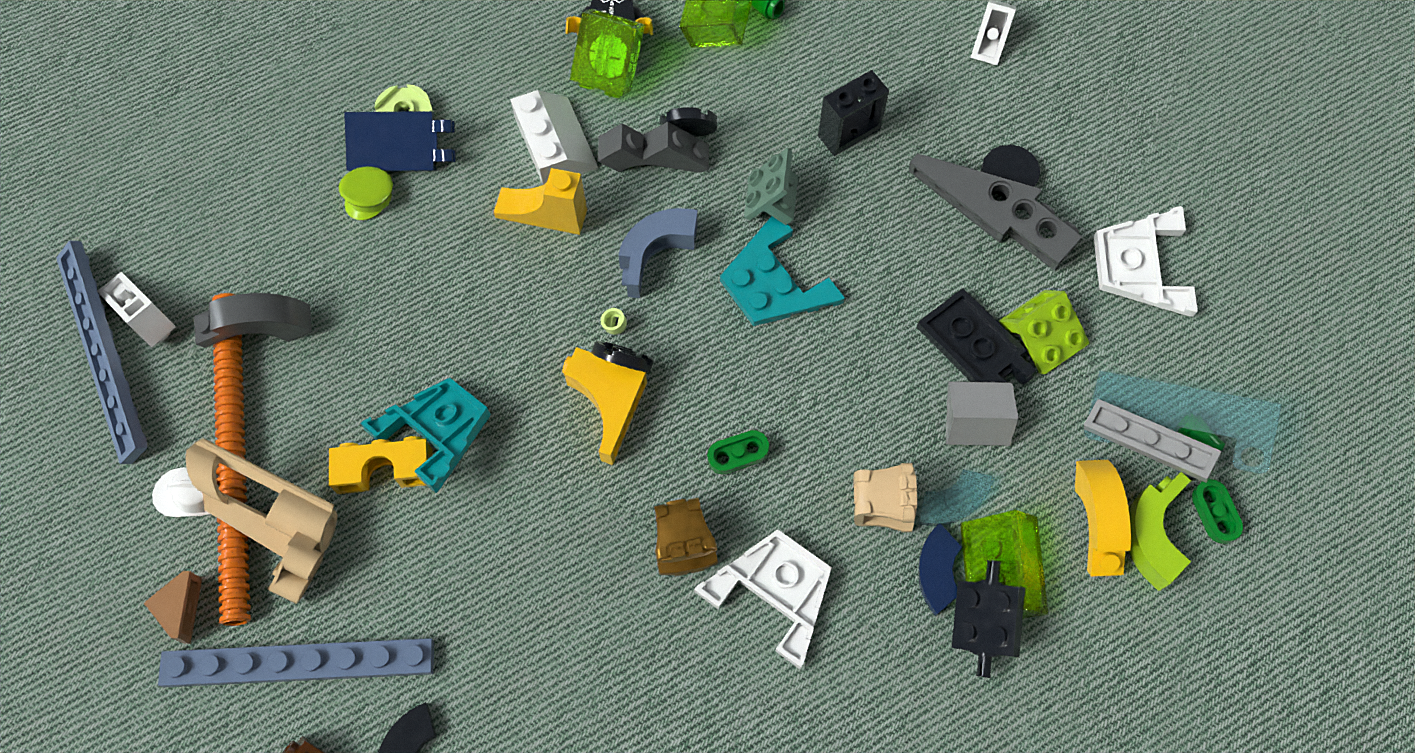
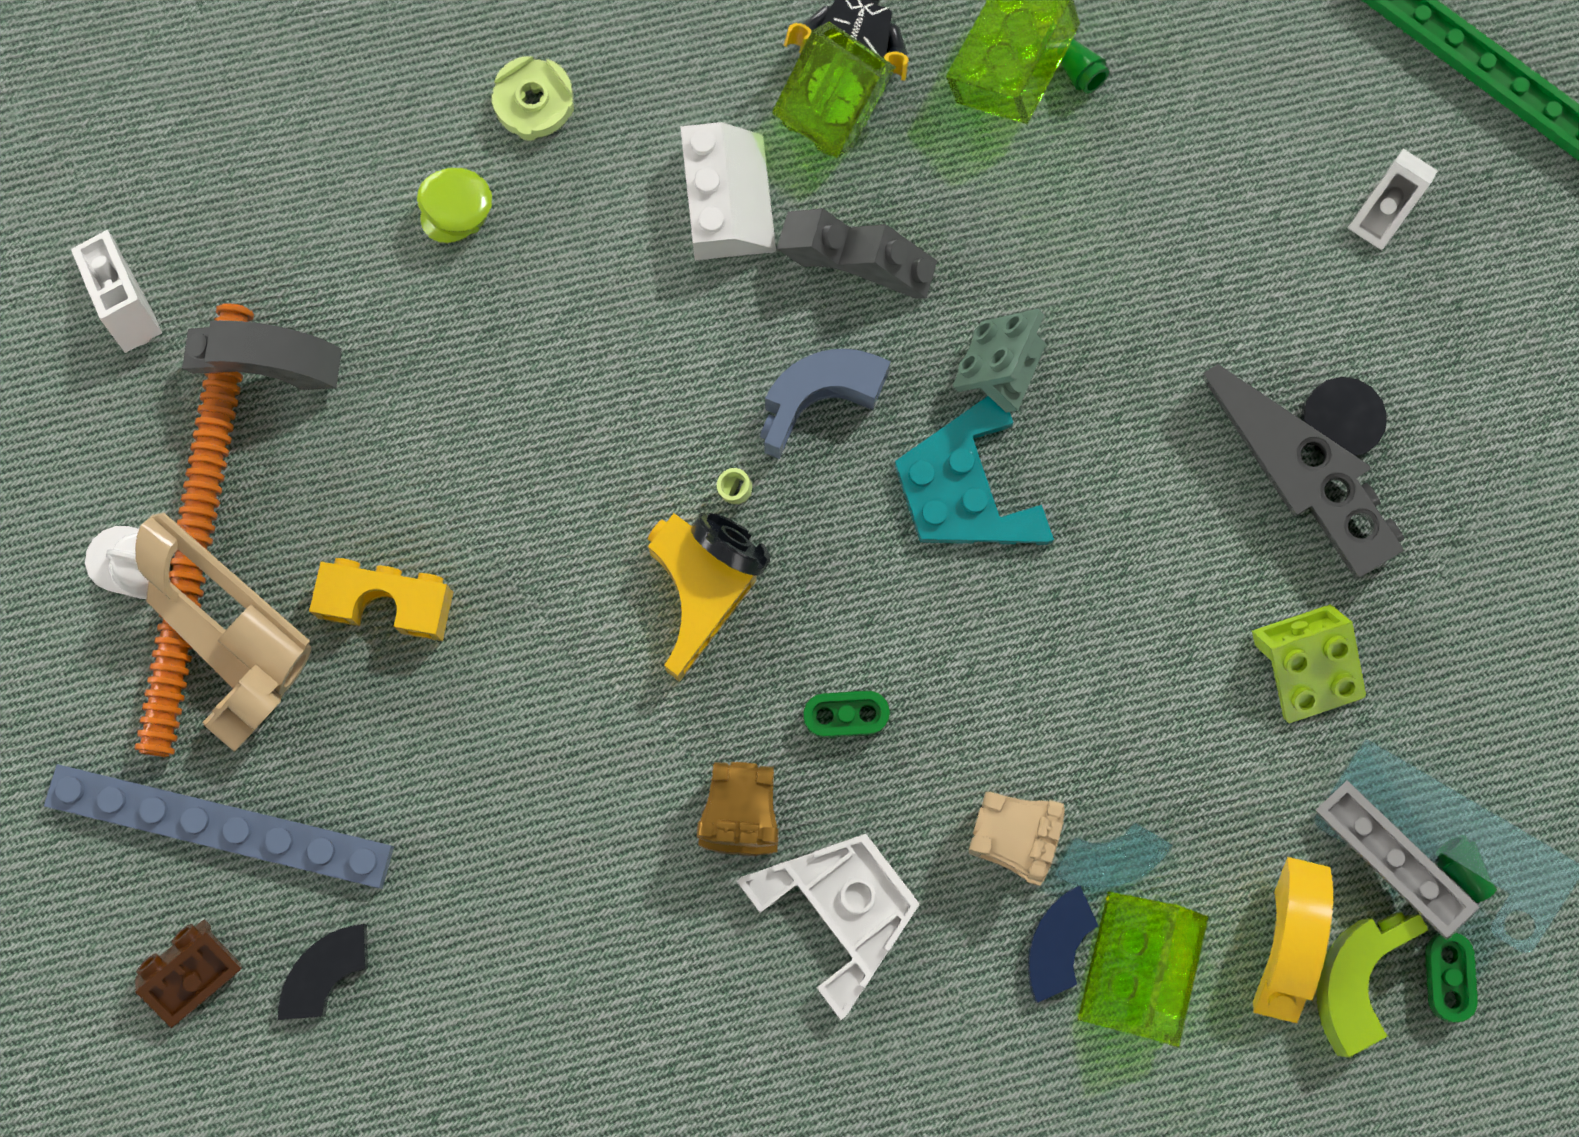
camera: 15 degrees right, 10 degrees up
(101, 353) = (59, 339): sand blue plate -> none
(176, 606) = (86, 713): medium nougat slope -> none
(395, 140) = (511, 142): dark blue tile -> none
(445, 418) = (479, 561): teal wing -> none
(554, 205) = (700, 296): yellow arch -> none
(691, 120) = (917, 227): black tile -> none
(844, 113) = (1156, 269): black window -> none
(975, 341) = (1210, 655): black tile -> none
(980, 413) = (1182, 754): light grey slope -> none
(988, 618) = (1098, 1031): black plate -> none
(1130, 262) = (1463, 600): white wing -> none

